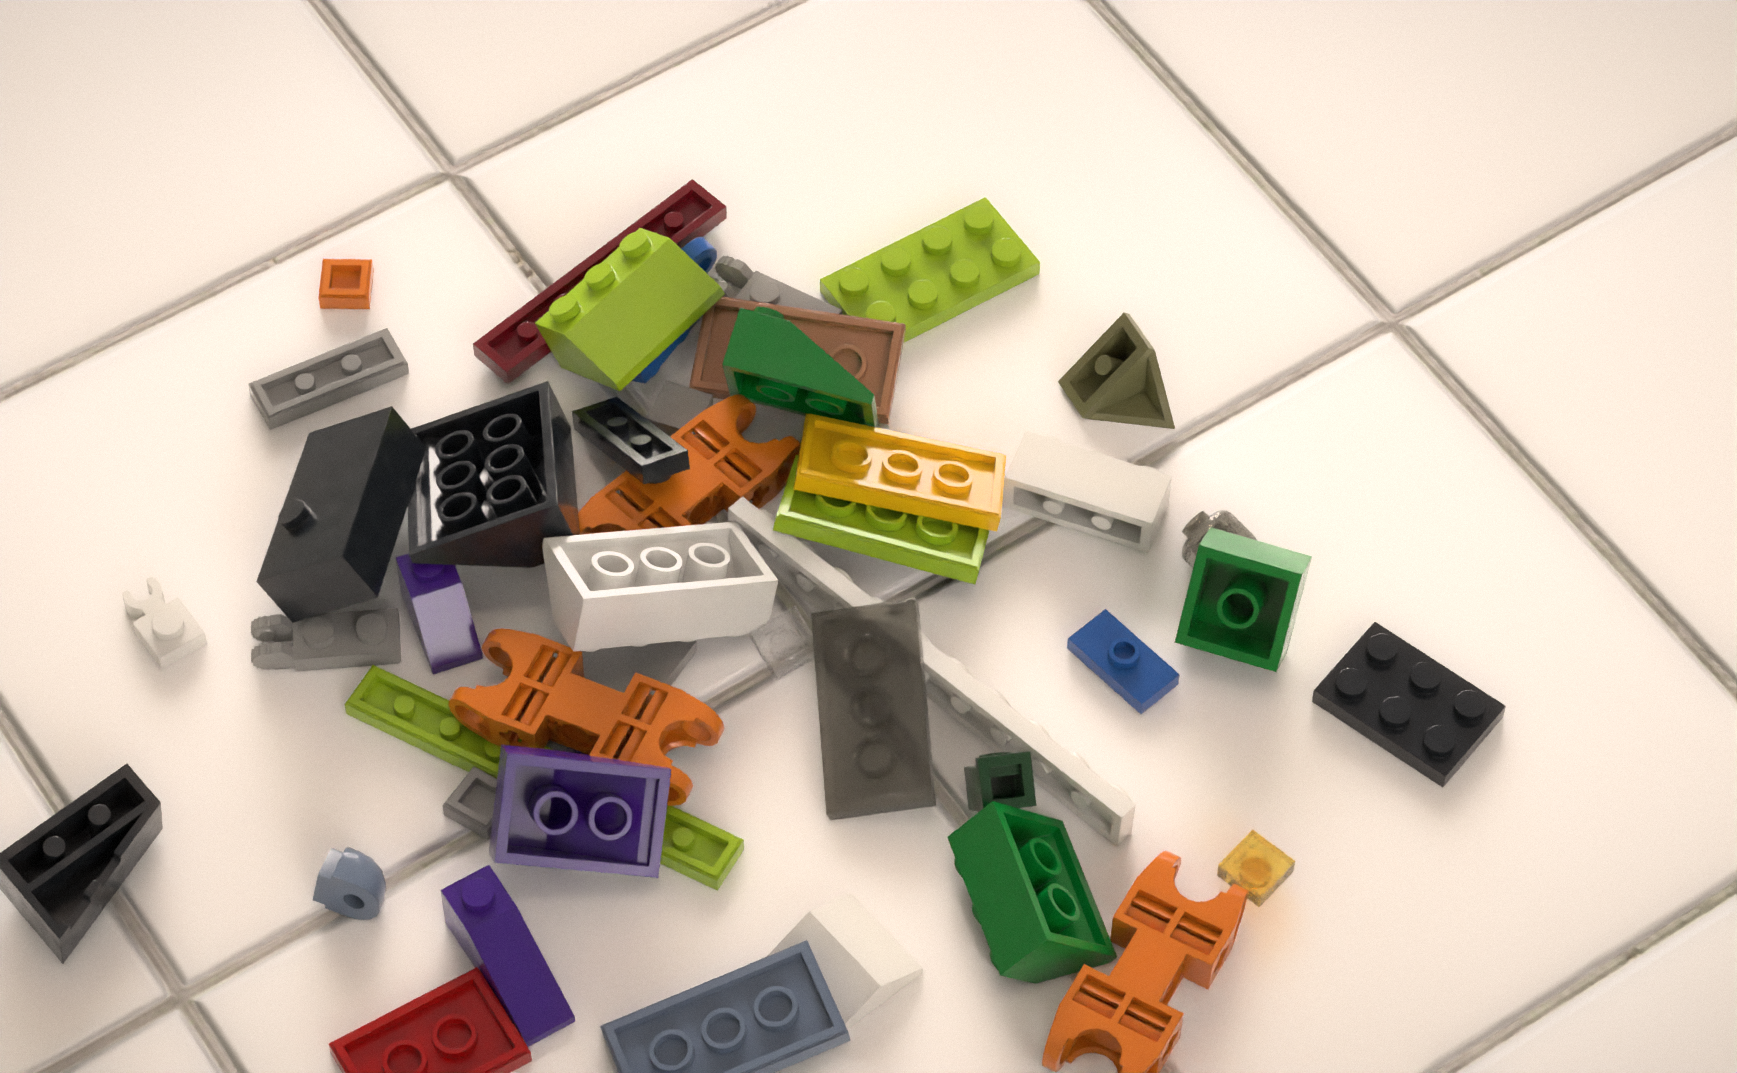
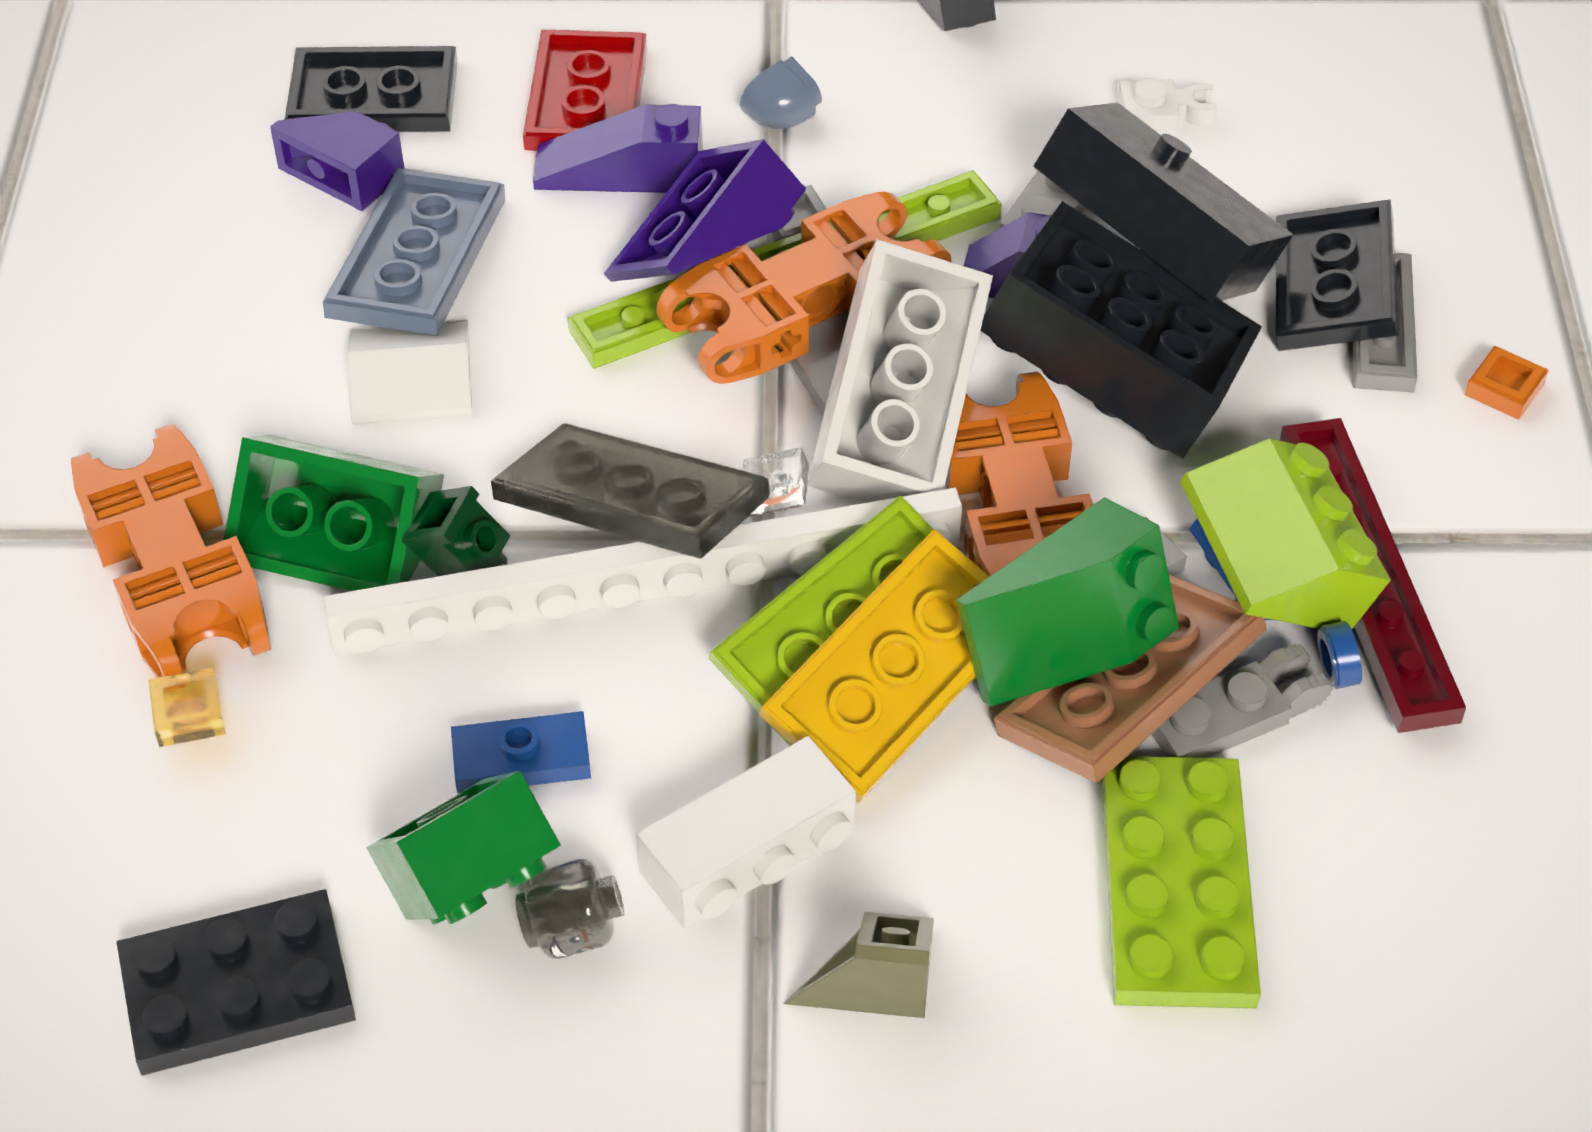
camera: 125 degrees right, 5 degrees down
(283, 408) = (1337, 276): none -> black tile
(631, 440) = (1105, 459): black plate -> none

